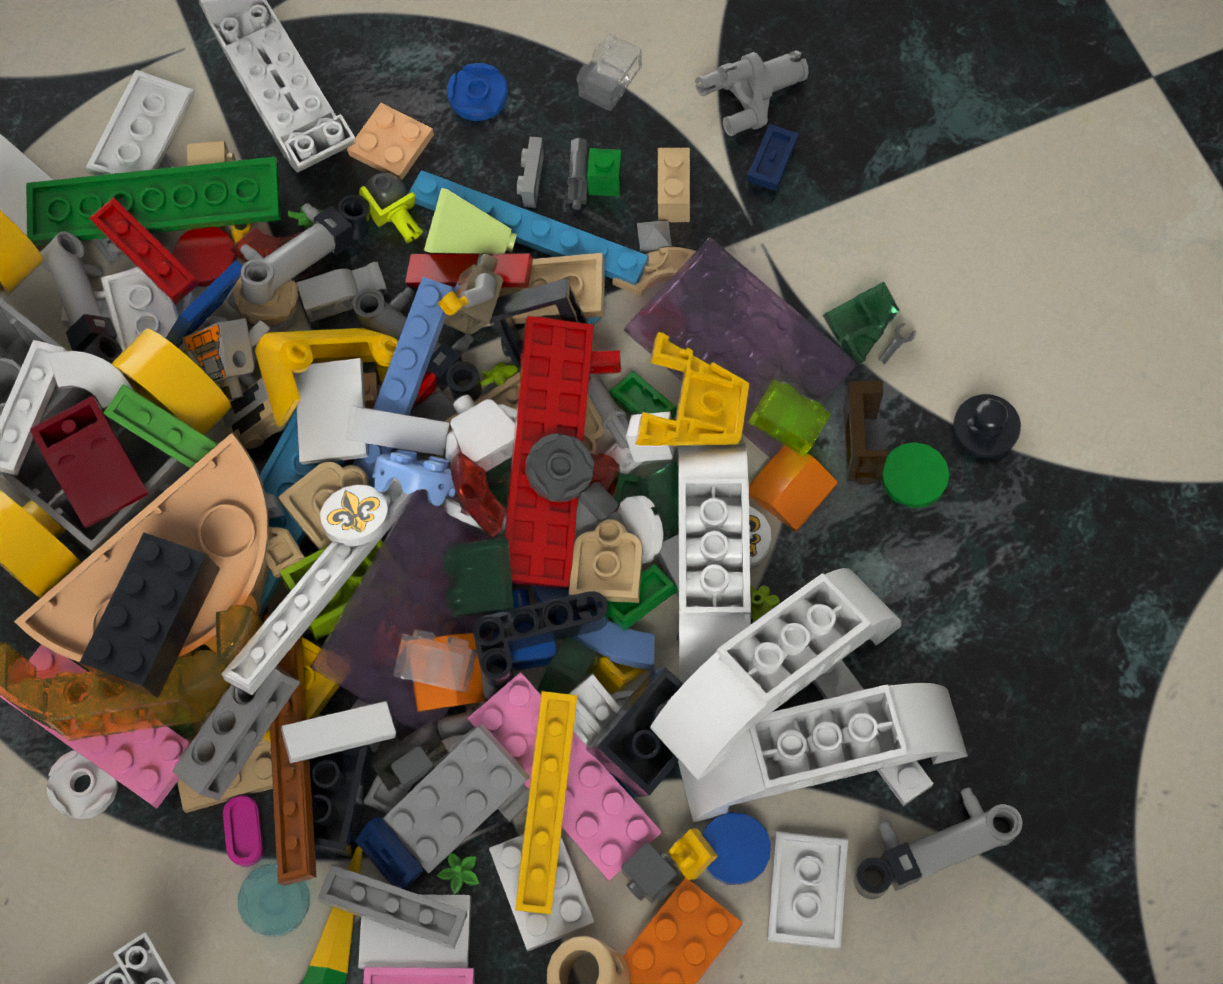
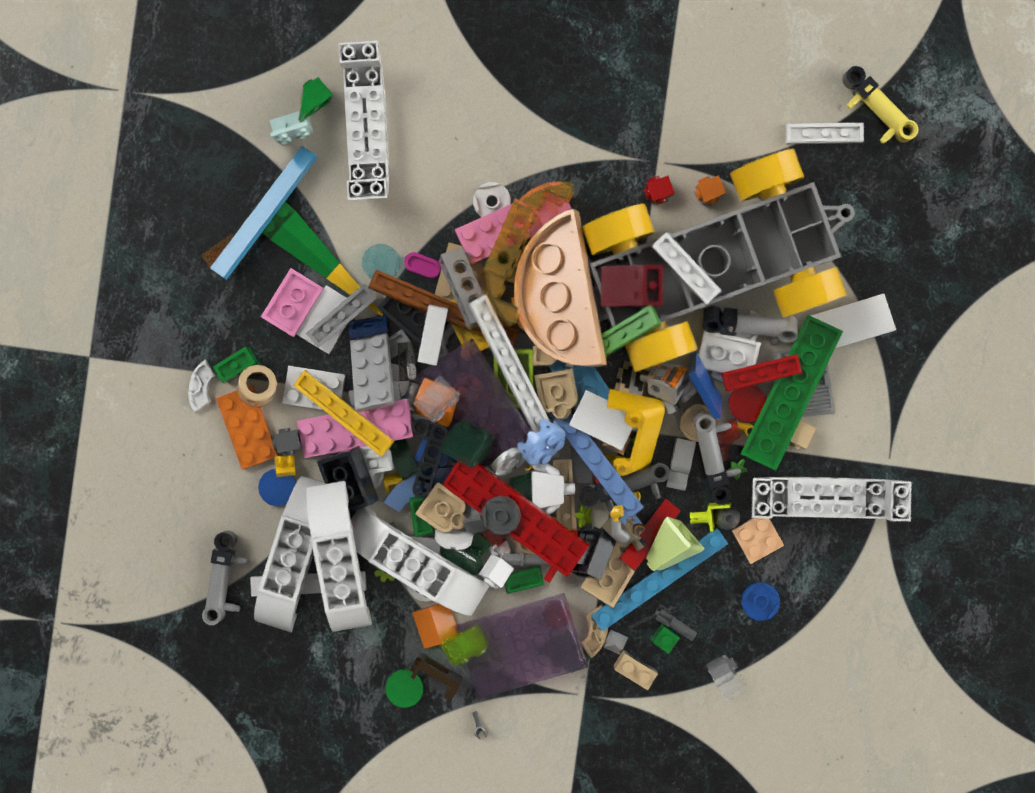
camera: 115 degrees right, 20 degrees up
(87, 373) = (681, 310): white tile -> none
(141, 126) = (847, 408): white tile -> none
(150, 615) = (531, 276): black brick -> none
(355, 515) = (536, 401): white tile -> none
(397, 430) = (572, 447): white tile -> none
(412, 768) = (398, 360): dark grey slope -> none
(459, 872) = (342, 355): bright green plant -> none
(474, 493) = (512, 466): clear red tile -> none
(532, 162) = (697, 605): light grey plate -> none
(708, 406) = (494, 610): yellow wing -> none
(753, 86) = (668, 747): light grey wheel -> none
(772, 157) = (621, 731): dark blue plate -> none
(808, 890) = (239, 508): white tile -> none
(862, 321) = (502, 716): clear green slope -> none
(986, 426) = (407, 740): black plate -> none

